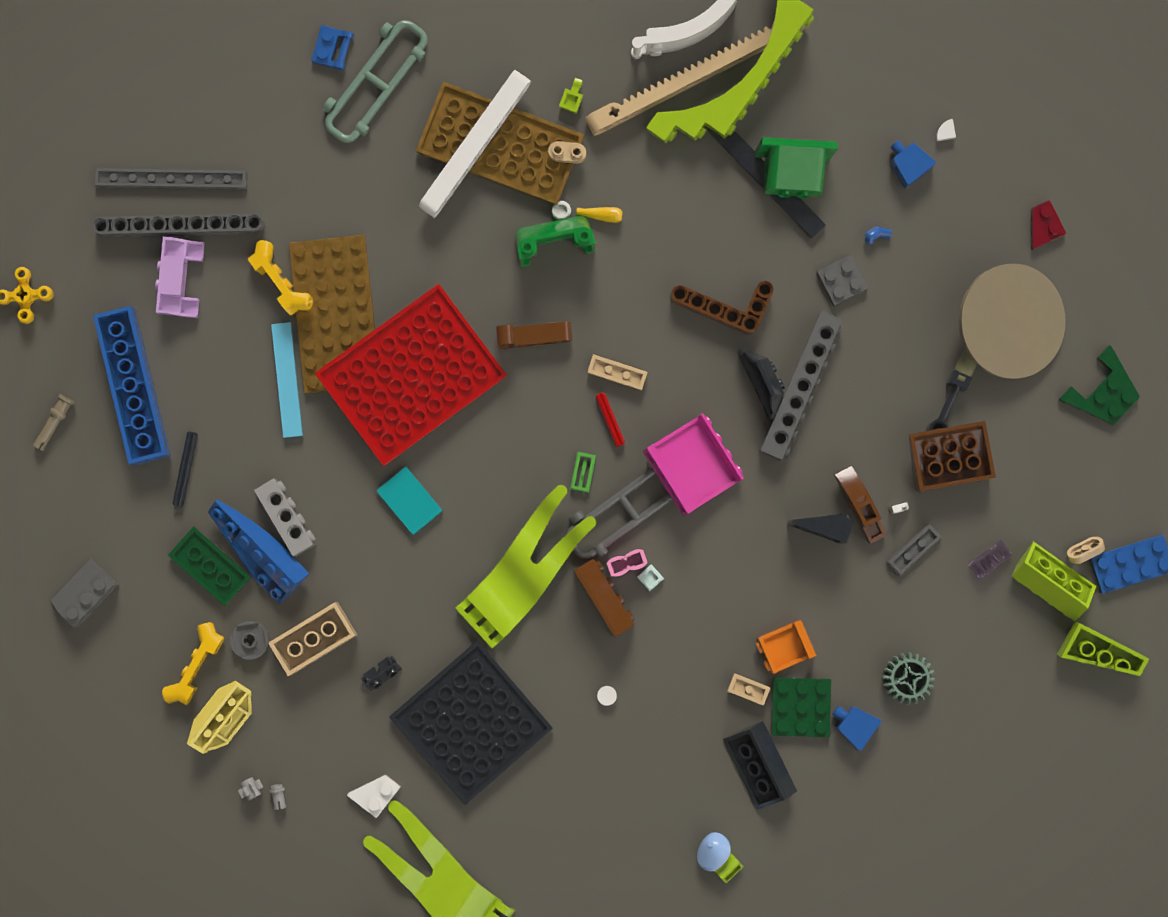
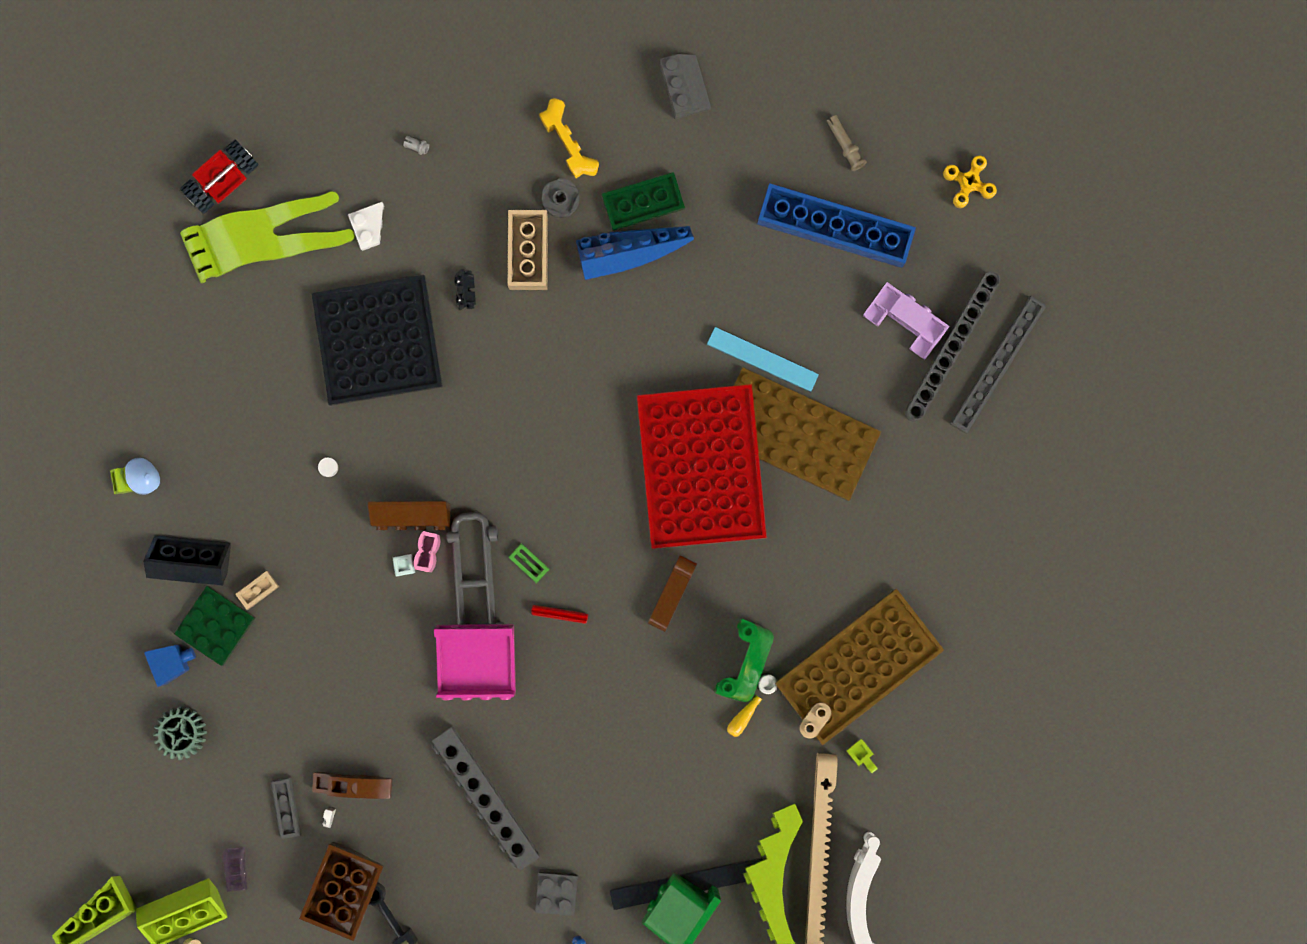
camera: 125 degrees right, 0 degrees up
(185, 468) = (738, 229): black axle -> none
(221, 718) = (509, 135): light yellow wedge -> none
(250, 788) = (436, 125): light grey gear -> none
(262, 263) = (876, 397): yellow plate -> none
(265, 494) = (617, 281): light grey brick -> none
(326, 47) = (1037, 567): blue plate -> none
(333, 107) = (978, 541): sand green bar -> none
(409, 500) = (595, 401): teal tile -> none
(474, 144) = (871, 644): white beam -> none
(517, 581) = (469, 449): lime flag -> none
(617, 372) = (596, 645): tan plate -> none
(724, 309) = (593, 772): reddish brown beam -> none
(764, 381) = (509, 768): black wedge -> none
(785, 647) = (273, 644): orange panel -> none
(831, 527) = (349, 745): black slope -> none

